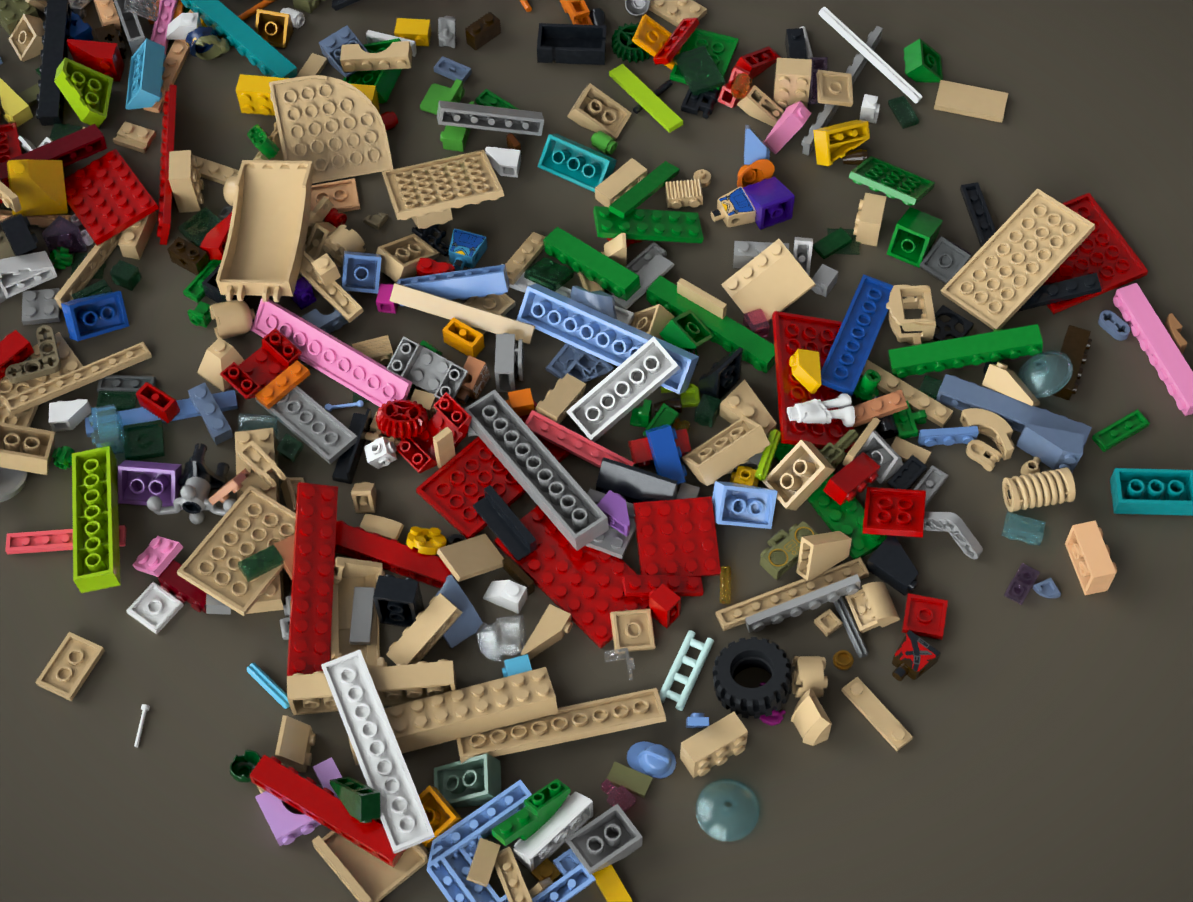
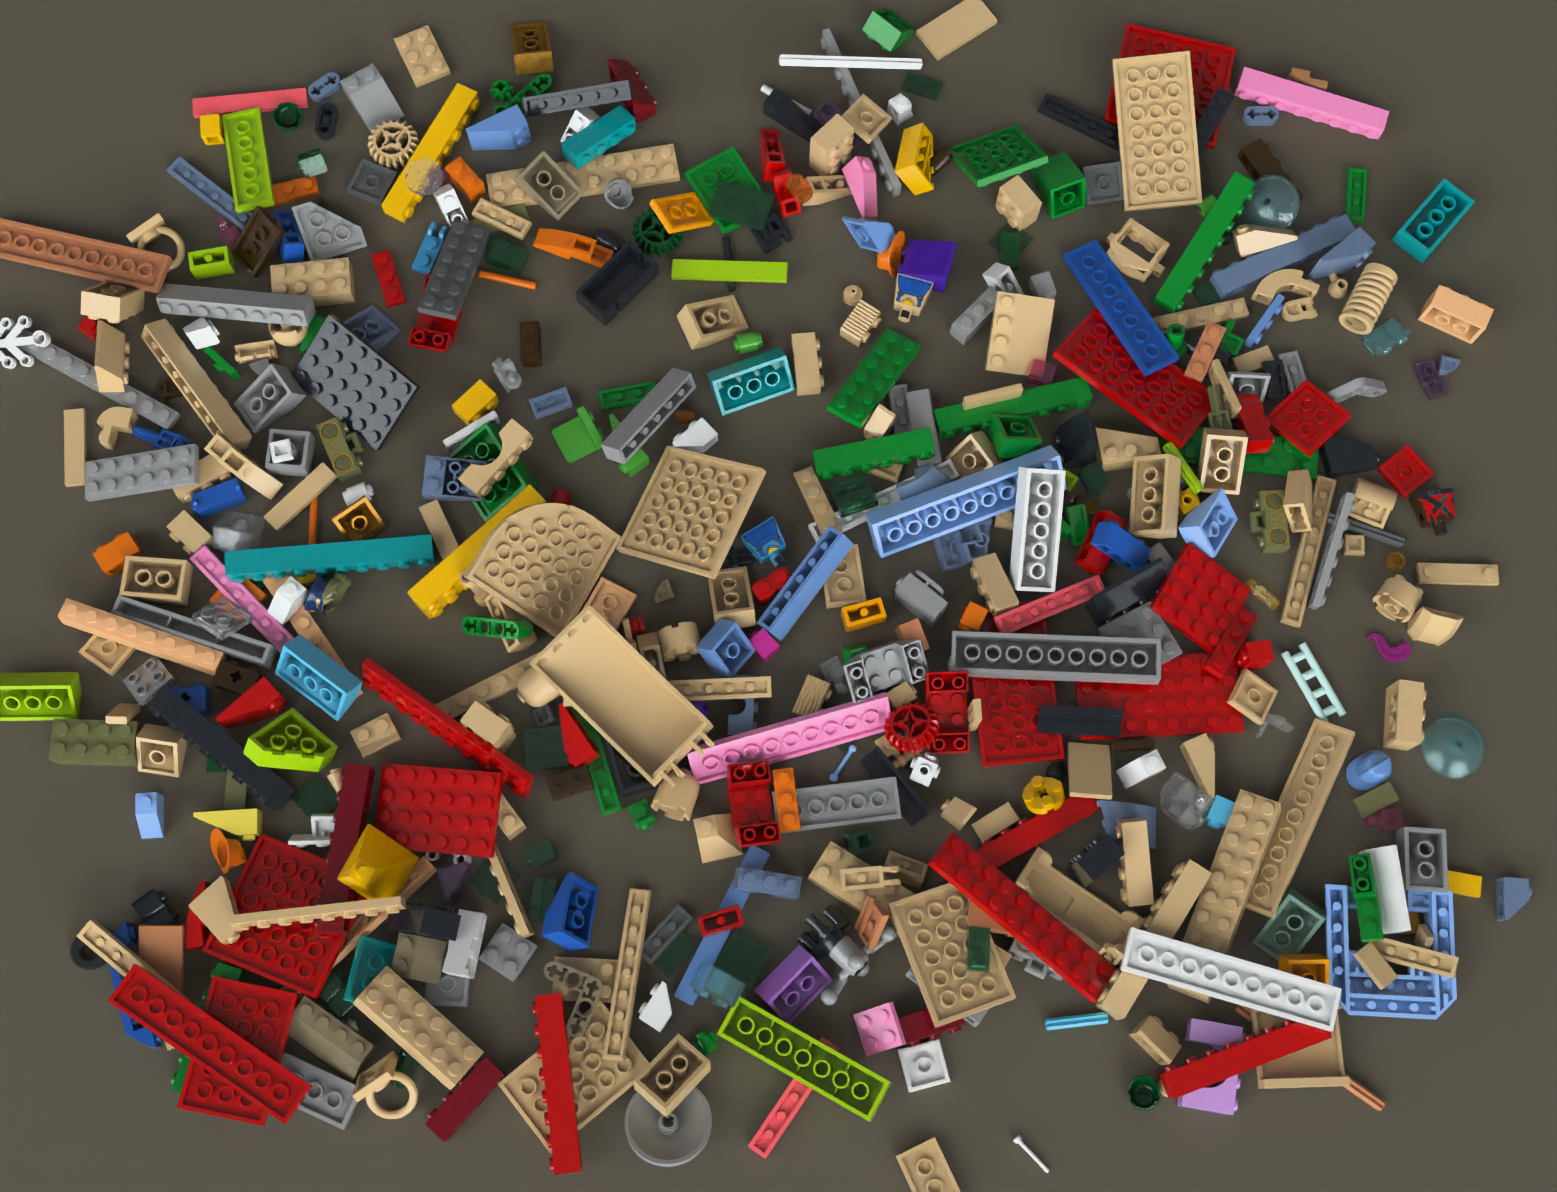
camera: 55 degrees left, 15 degrees up
(61, 258) = (471, 898): green gear -> none
(254, 422) = (807, 850): clear light blue tile -> none
(326, 269) = (711, 678): tan brick -> none
(359, 799) = (1263, 1025): dark green slope -> none
(362, 616) = (1071, 898): light grey tile -> none
(466, 314) = (840, 597): tan tile -> none
(615, 508) = (1147, 626): medium lavender slope -> none
(644, 189) = (836, 351): green tile -> none
(676, 41) = (696, 198): red plate -> none
(697, 720) = (1381, 713): medium blue plate -> none
(752, 700) = (1381, 617): black tyre -> none
(806, 369) = (1133, 374): yellow slope -> none
(816, 411) = (1177, 400): white piece -> none
(955, 318) = (1176, 233): black piece -> none

